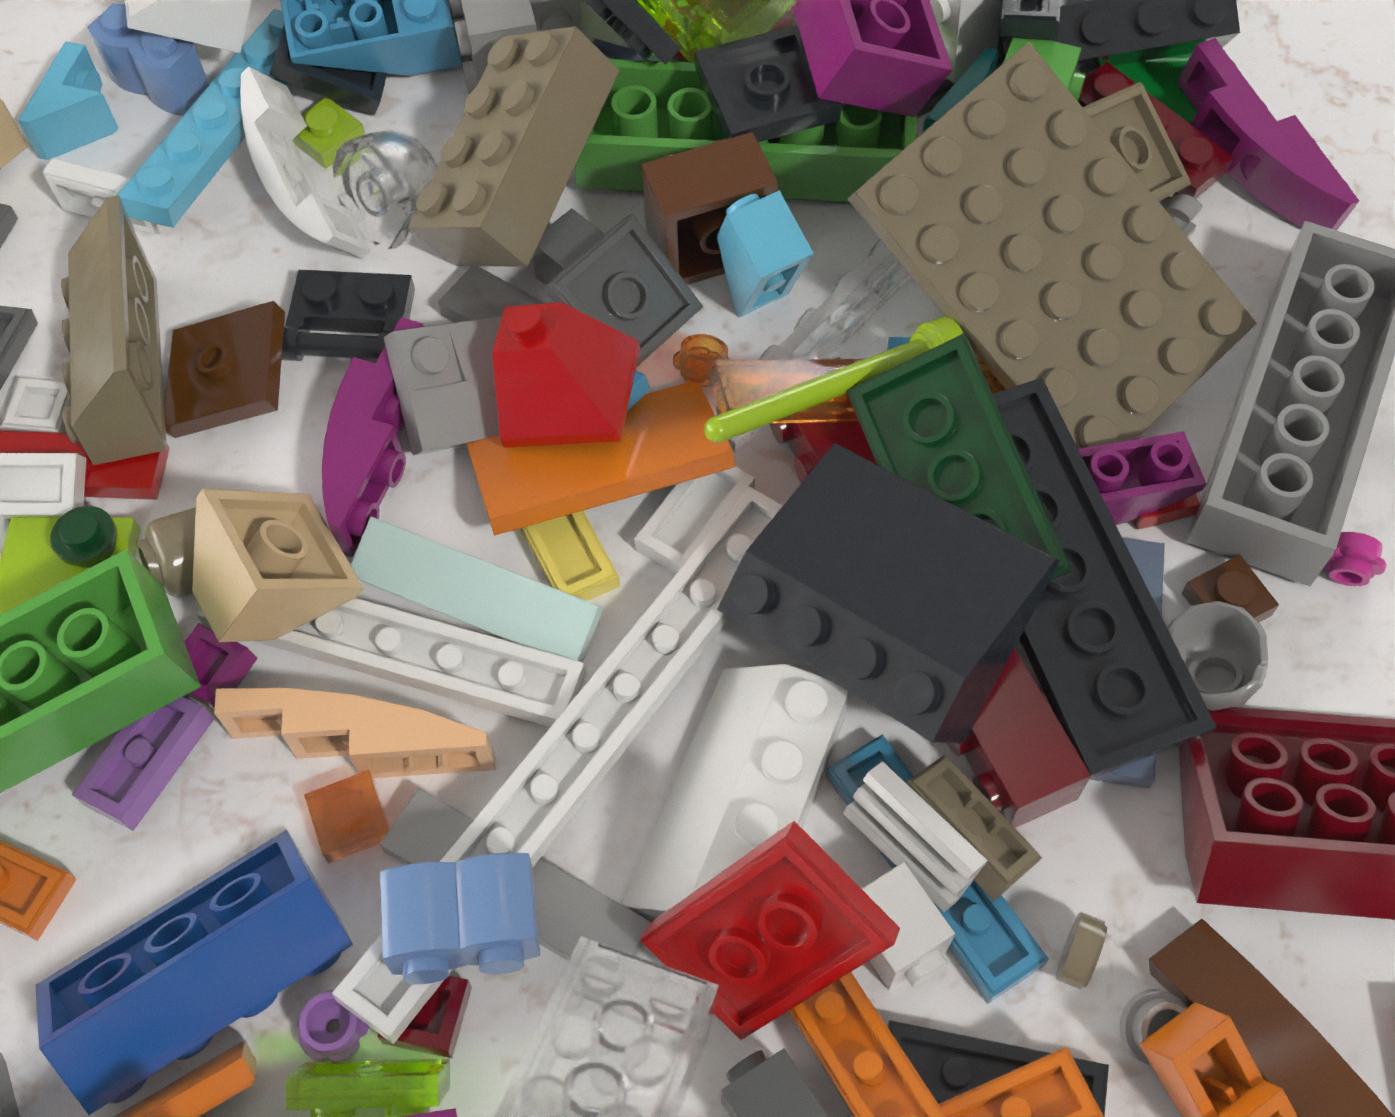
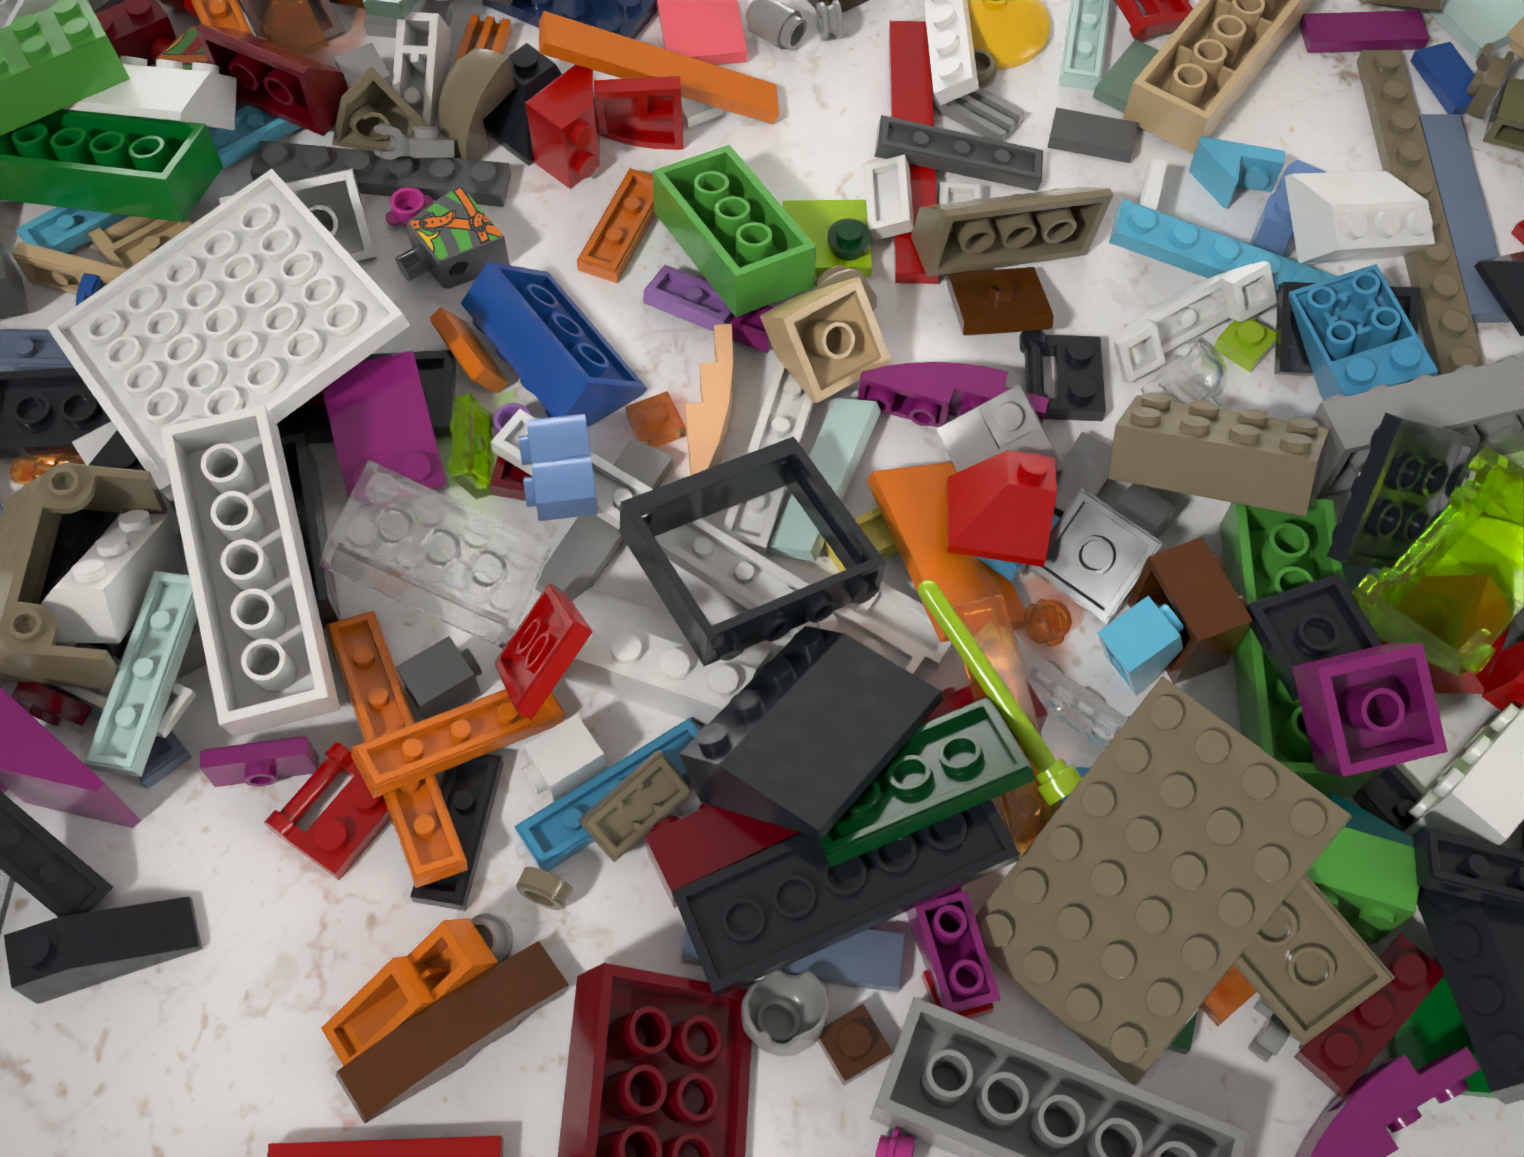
camera: 85 degrees right, 0 degrees up
(573, 563) = (727, 486): none -> black window
(914, 834) = (625, 762): white tile -> none

